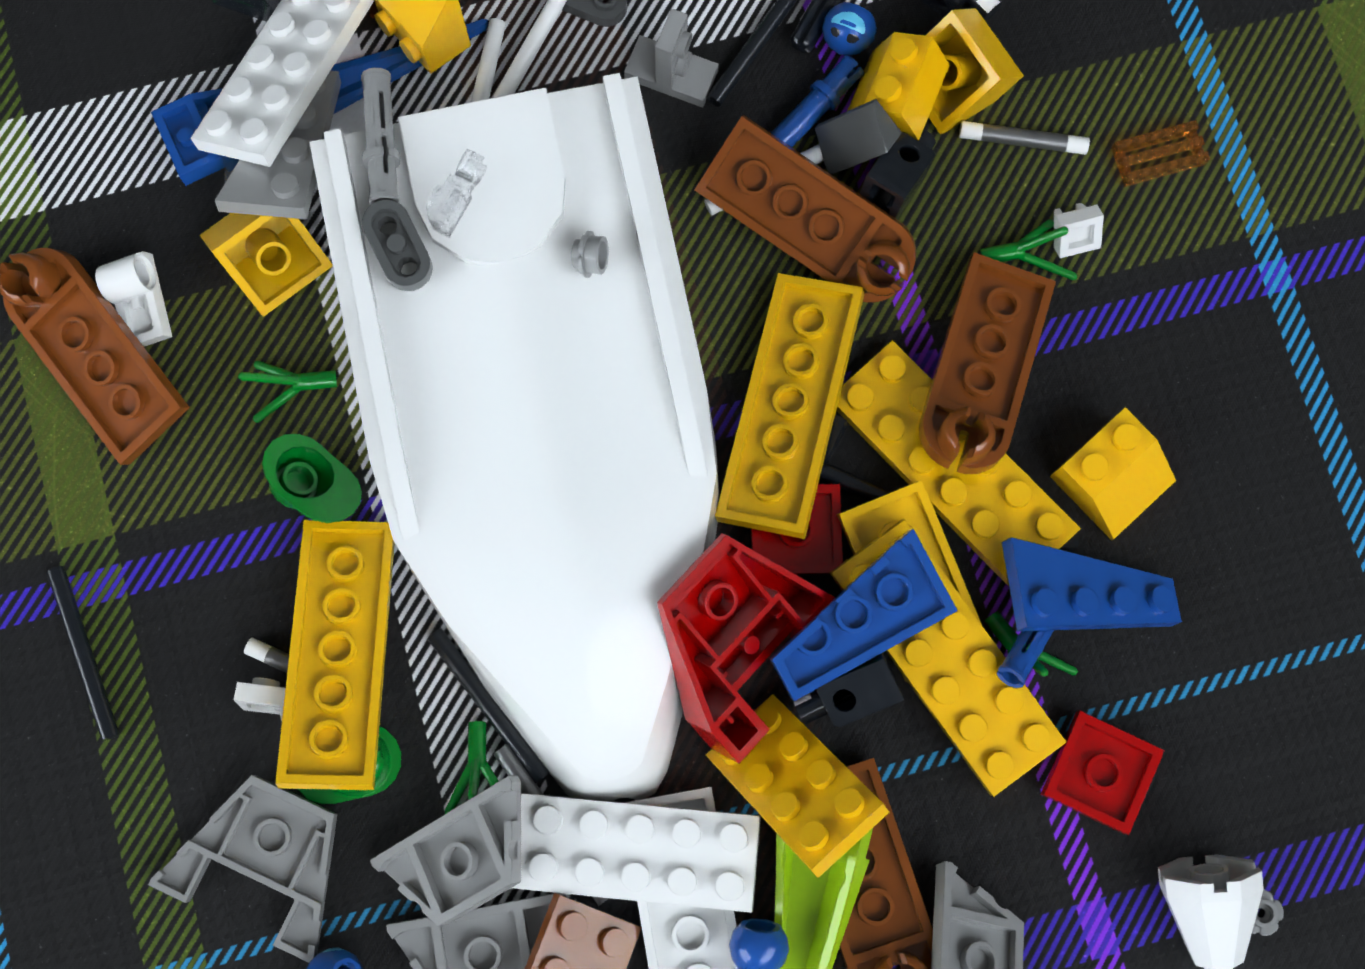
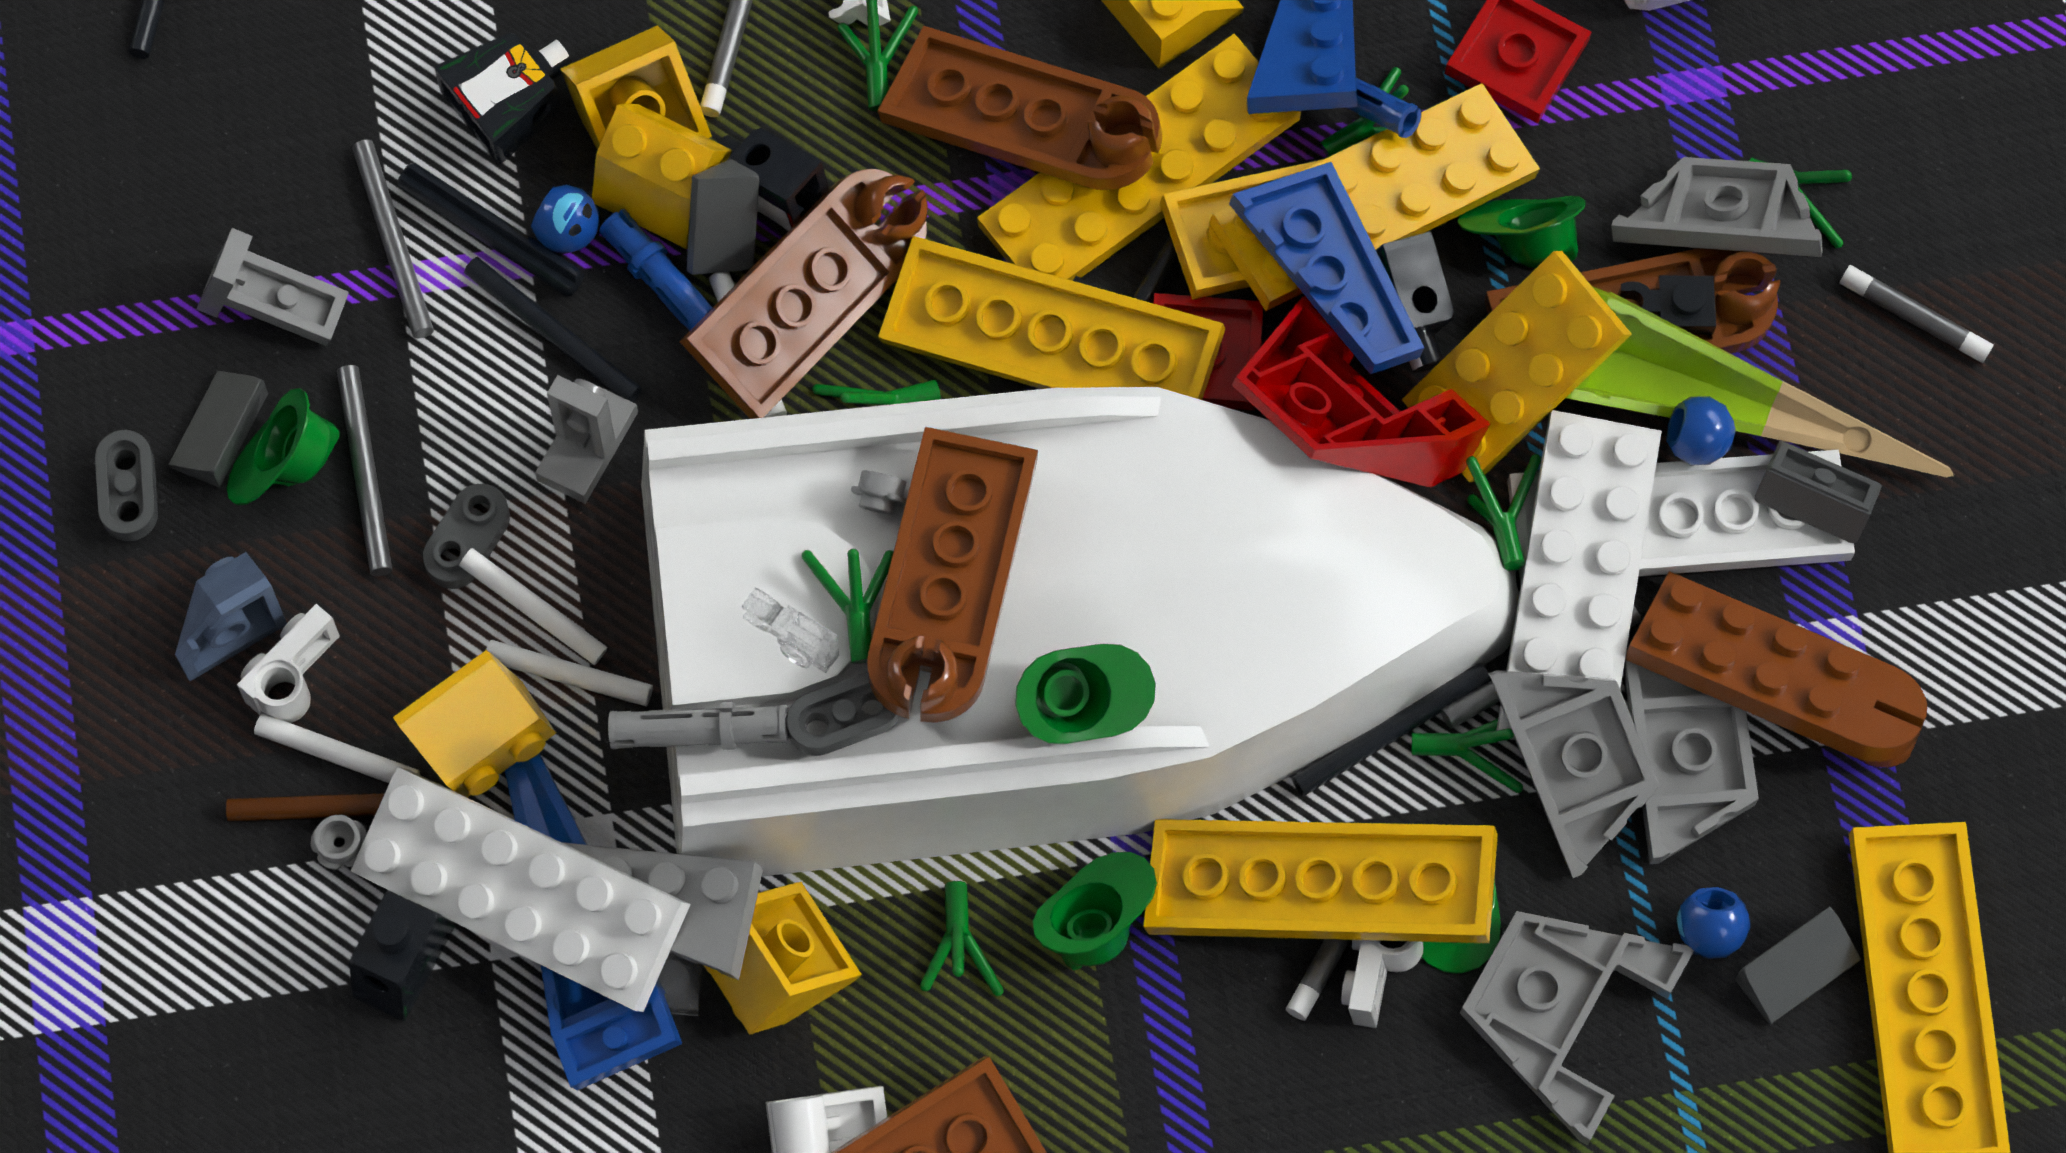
camera: 85 degrees left, 10 degrees down
(417, 425) = (1085, 693): none -> green piece
(479, 244) = (859, 608): none -> green plant
(516, 311) = (949, 573): none -> dark orange plate
(661, 784) = (1503, 522): none -> green plant
(727, 289) = (915, 393): none -> green plant
(878, 924) = (1679, 300): none -> black plate
(938, 789) = (1528, 227): none -> green piece

